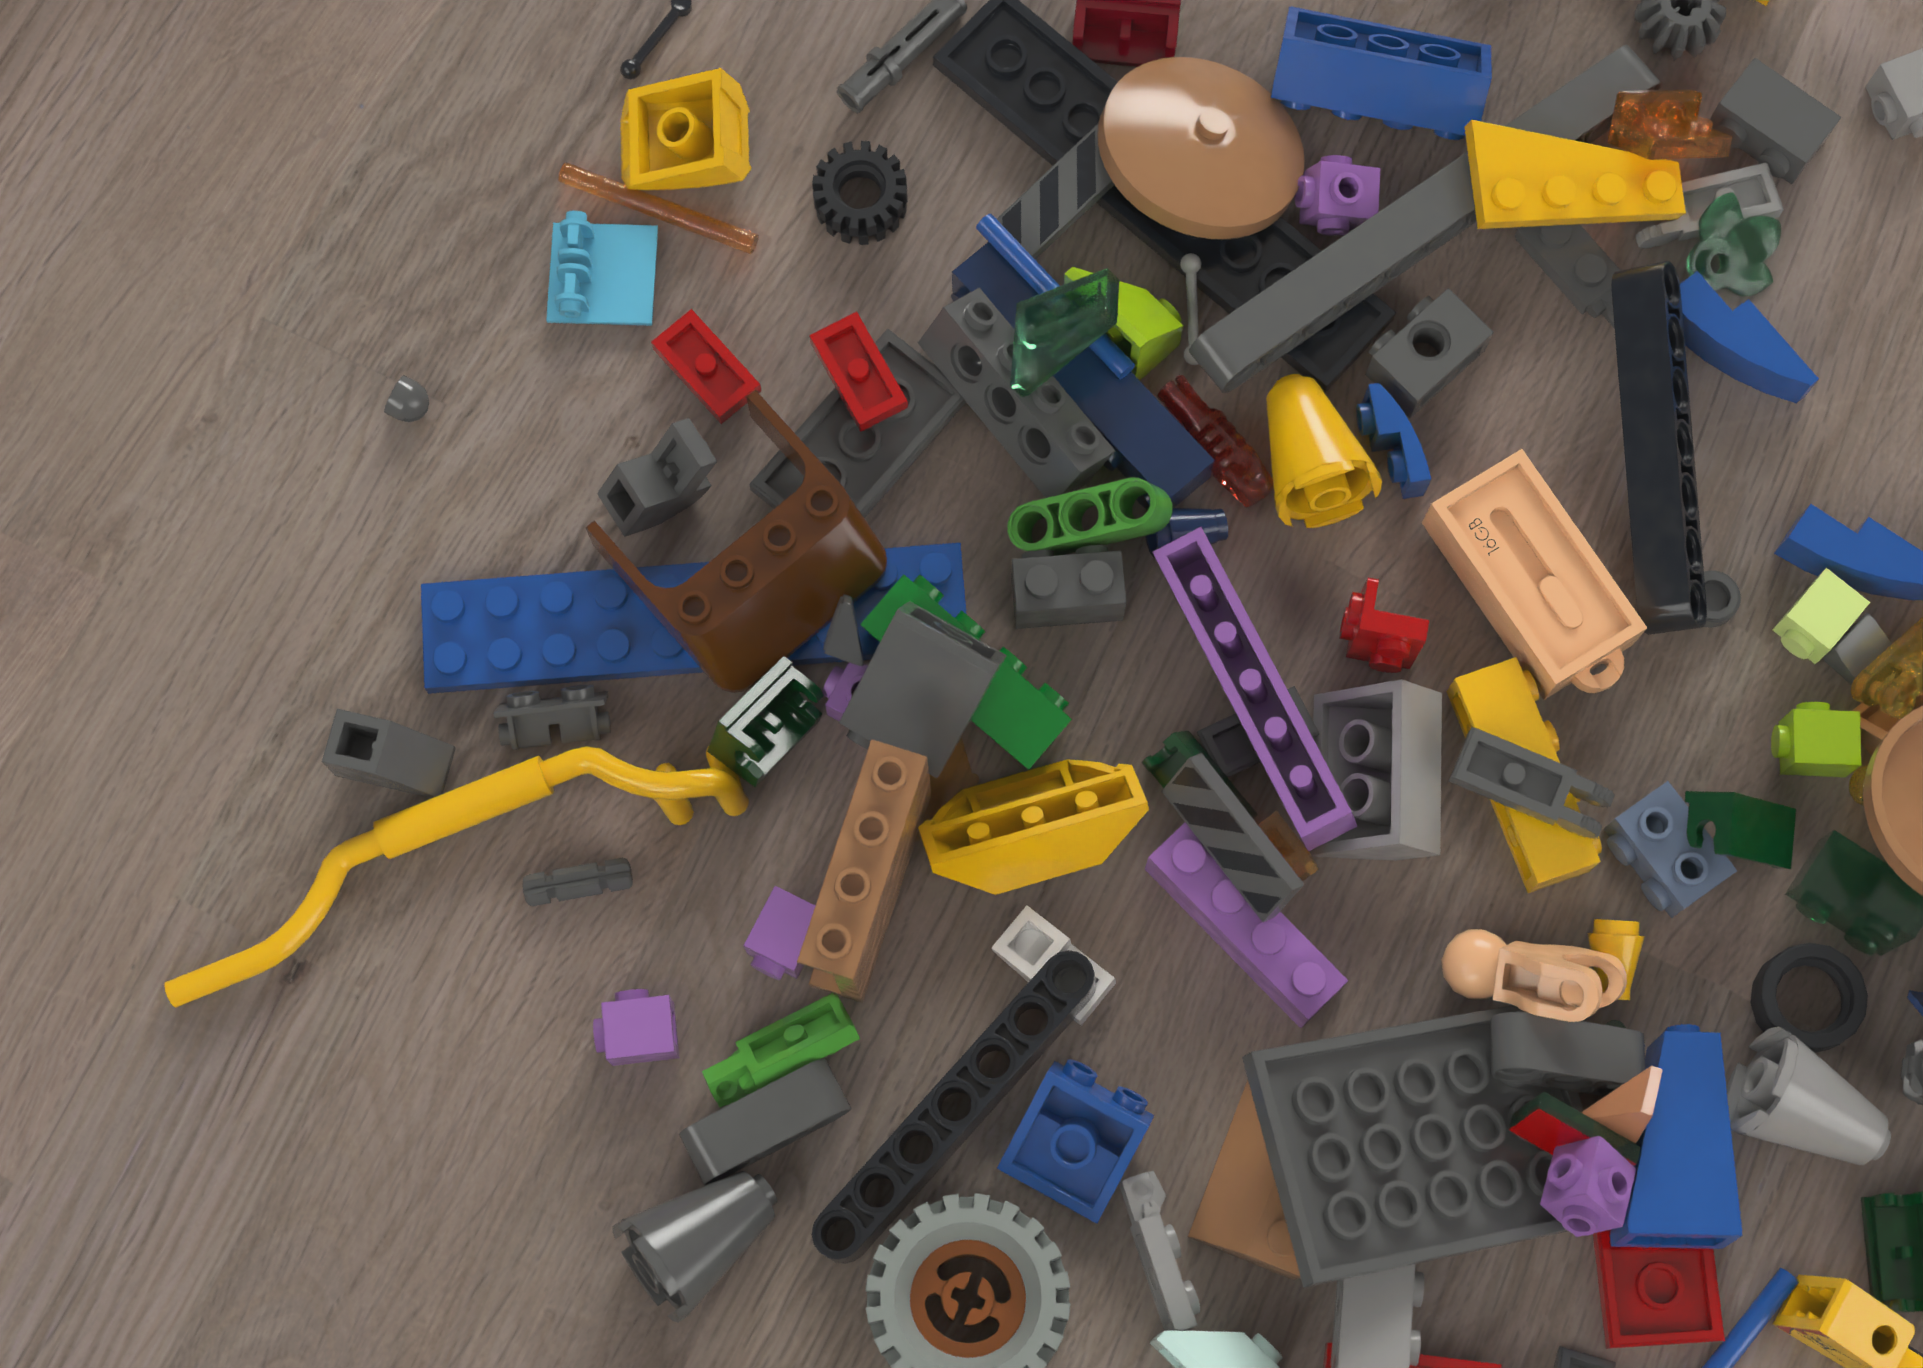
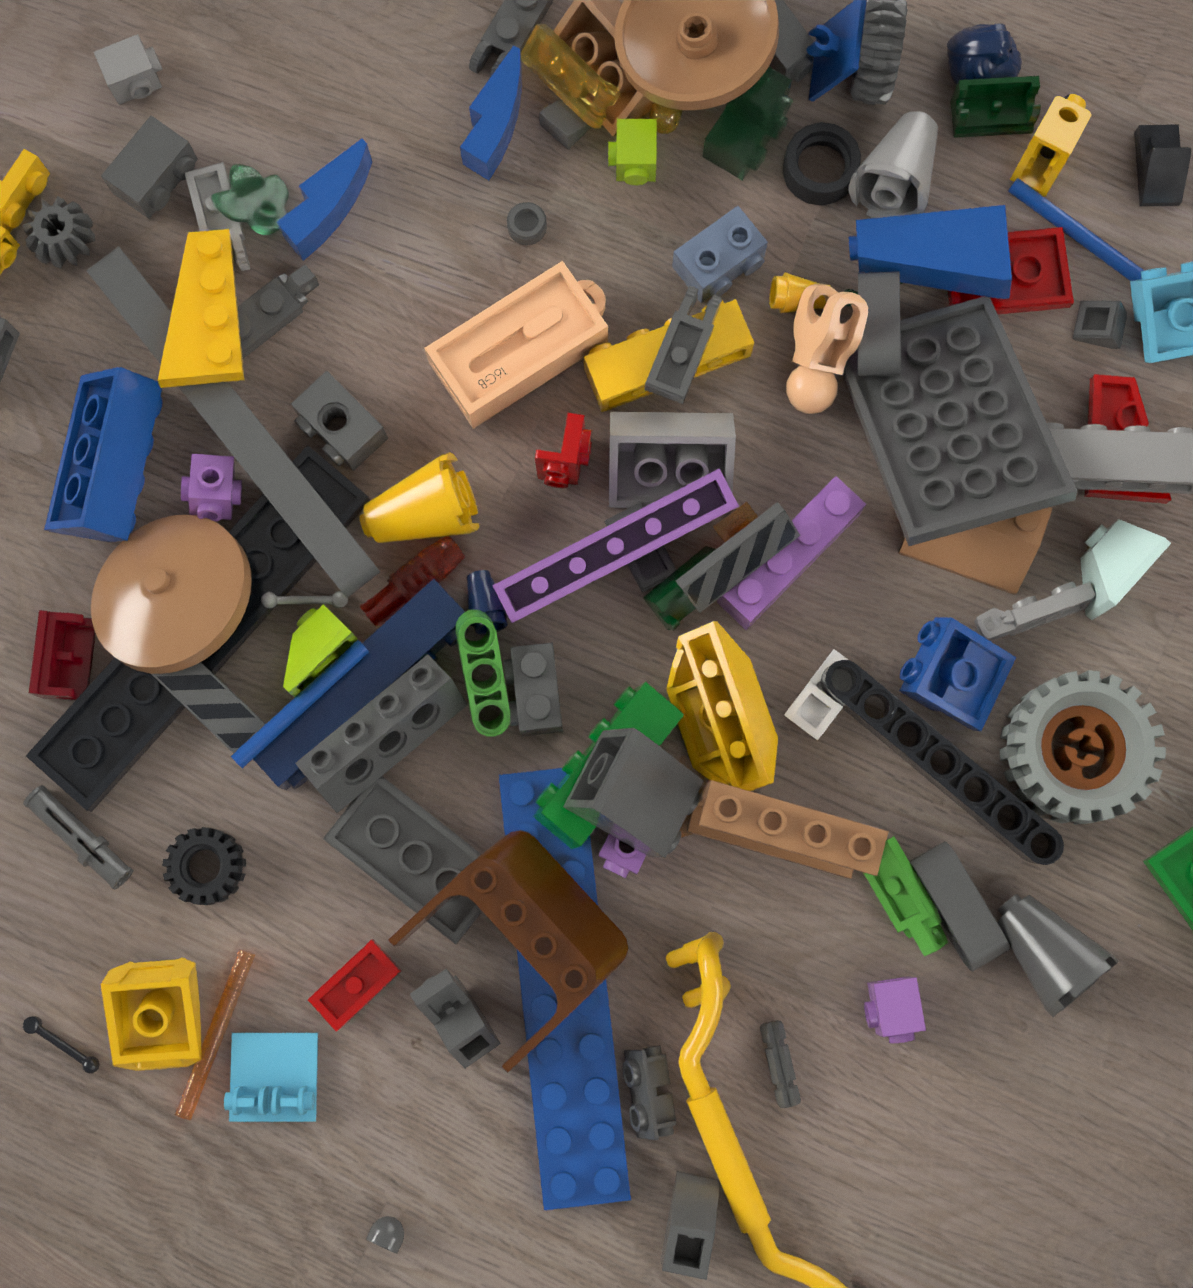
camera: 90 degrees left, 5 degrees up
(766, 722) = (654, 918): dark green hinge -> none
(779, 934) = (819, 897): medium lavender brick -> none
(843, 634) = (584, 862): dark grey slope -> none
(858, 371) = (363, 859): red plate -> none
(1060, 326) = (336, 694): clear green wing -> none
(1390, 429) = (397, 452): blue slope -> none
(1553, 1123) = (941, 318): tile -> none
(1588, 1186) = (979, 307): medium lavender brick -> none
(1629, 1106) = (925, 283): nougat slope -> none
(1659, 448) = (415, 252): black beam -> none
(1665, 126) = (160, 245): clear orange bracket -> none
(1744, 826) = (703, 195): dark green hinge -> none
(1820, 617) = (541, 146): yellowish green brick -> none

